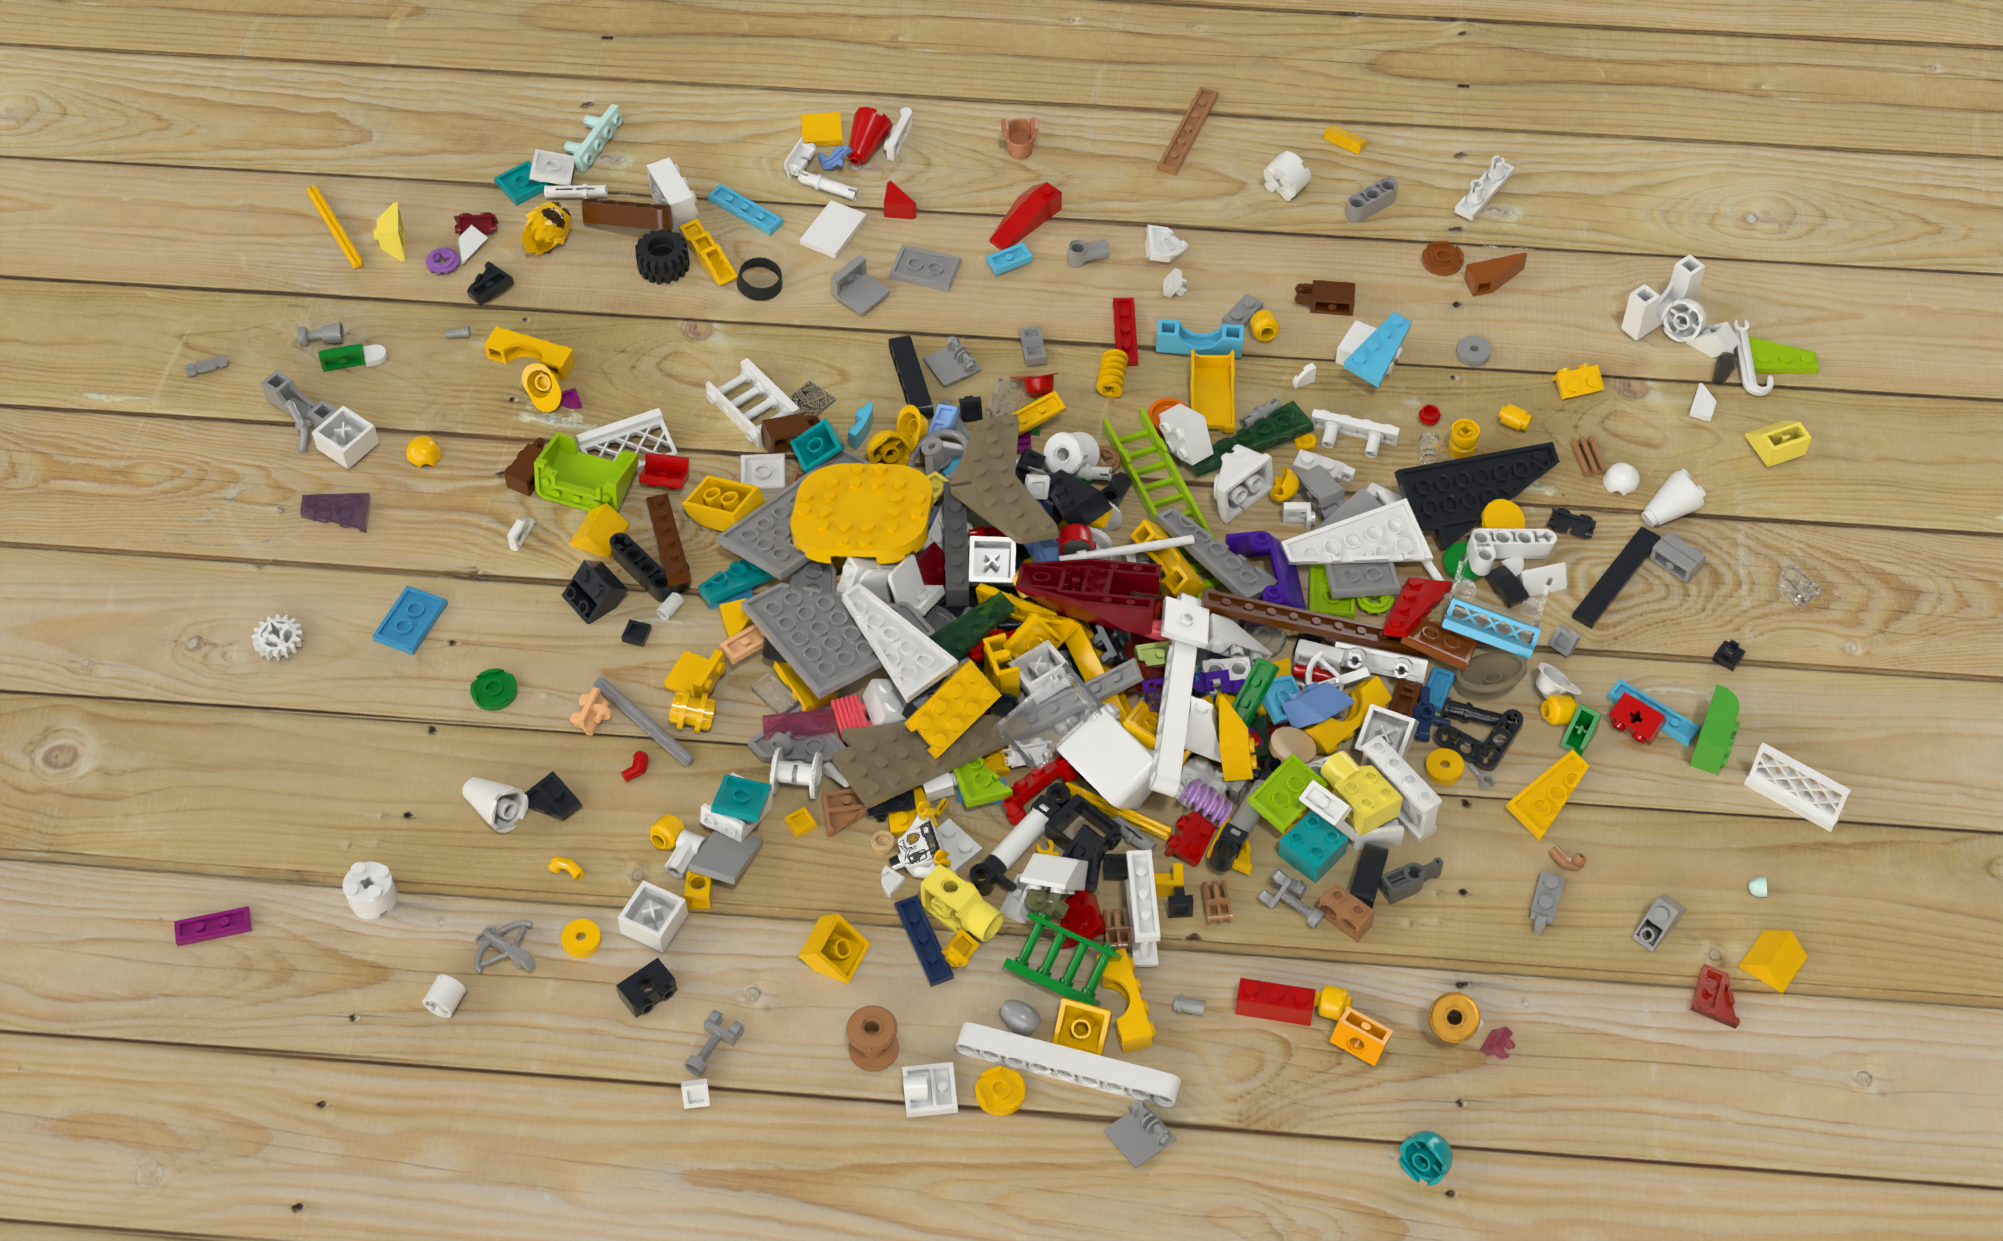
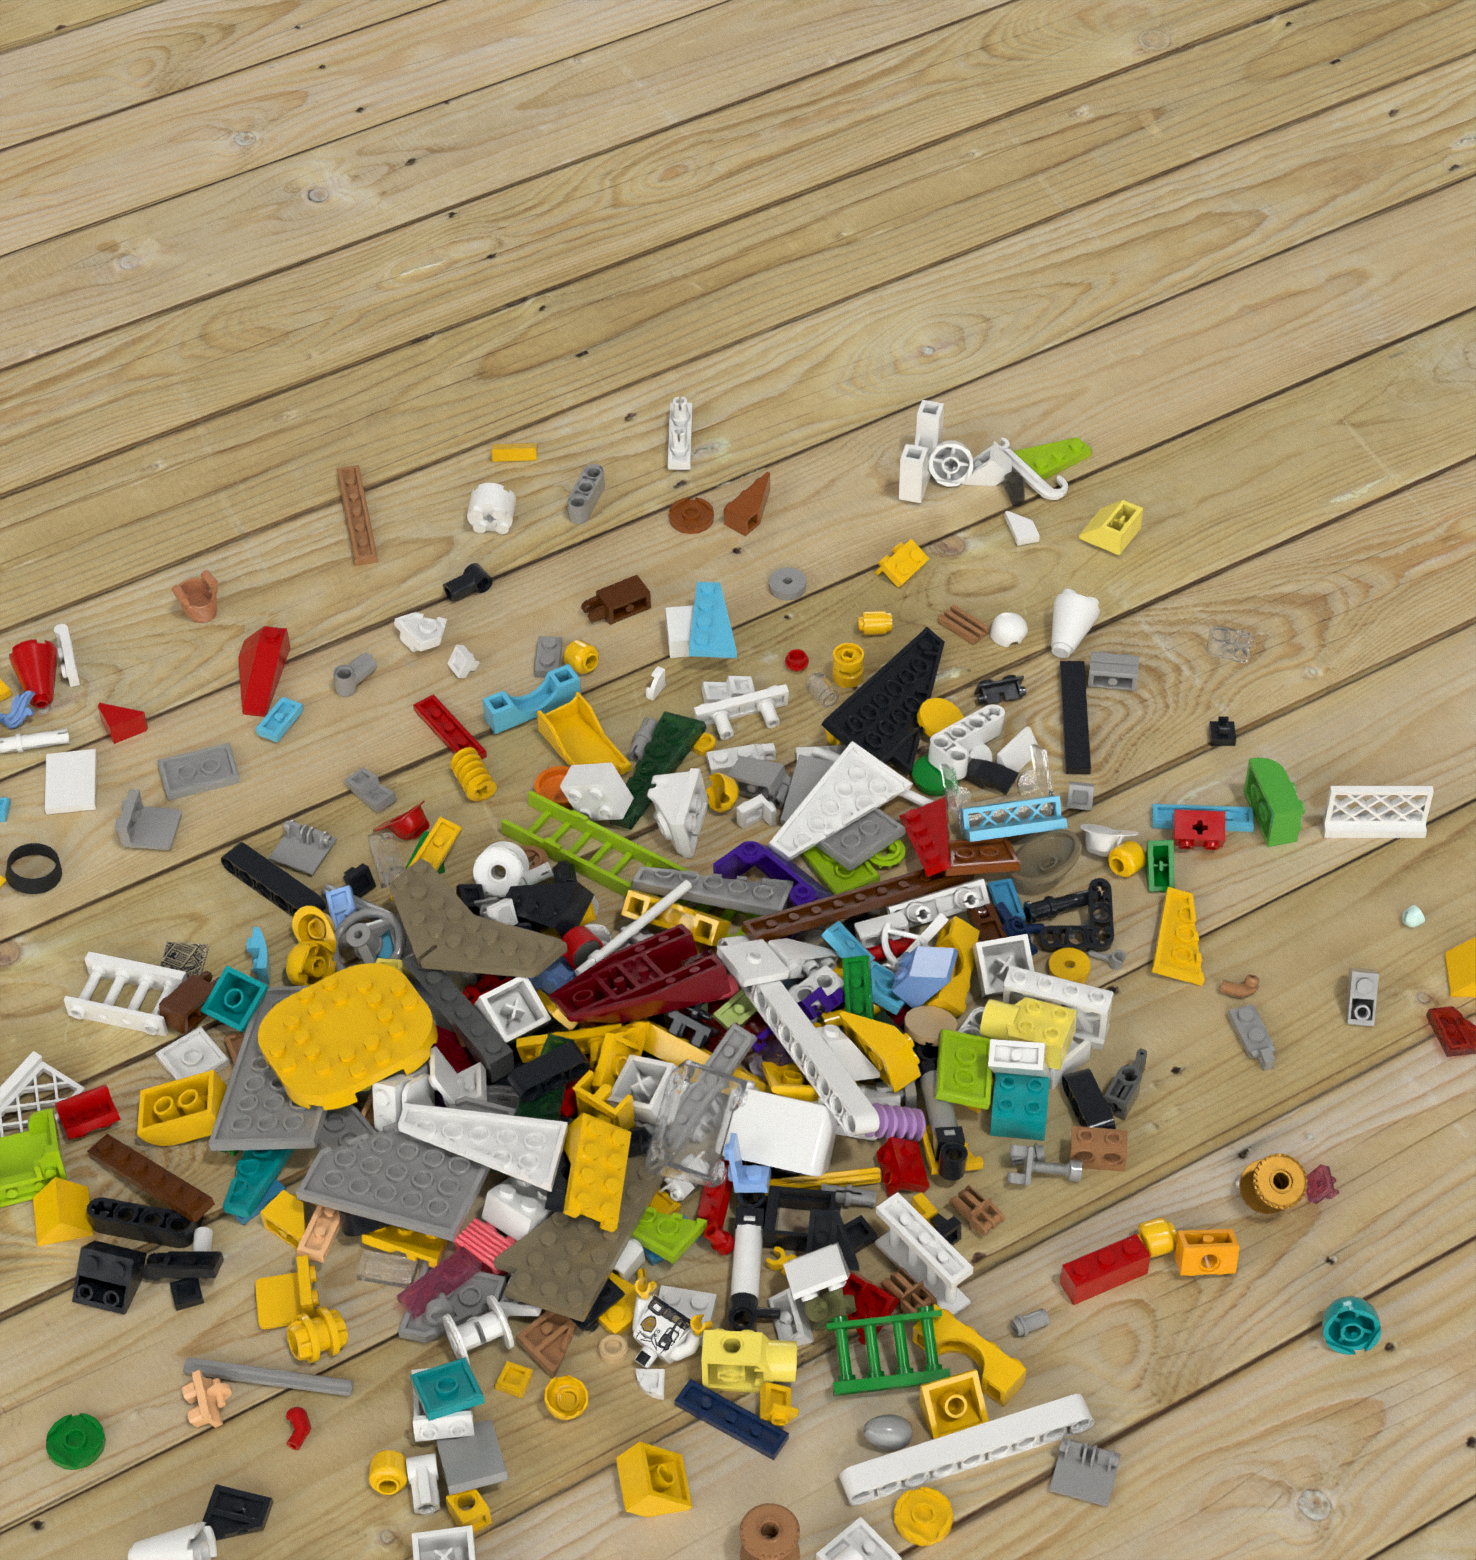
camera: 35 degrees left, 5 degrees down
(645, 612) = (182, 1265): none -> black hinge
(820, 854) = (566, 1397): none -> yellow hair
(974, 618) = (549, 1072): none -> black beam
(1059, 772) = (745, 1177): none -> light blue bracket
(1233, 225) = (473, 579): none -> black piece
(1279, 651) = (844, 942): none -> medium azure plate
(1357, 410) = (733, 687): none -> white slope

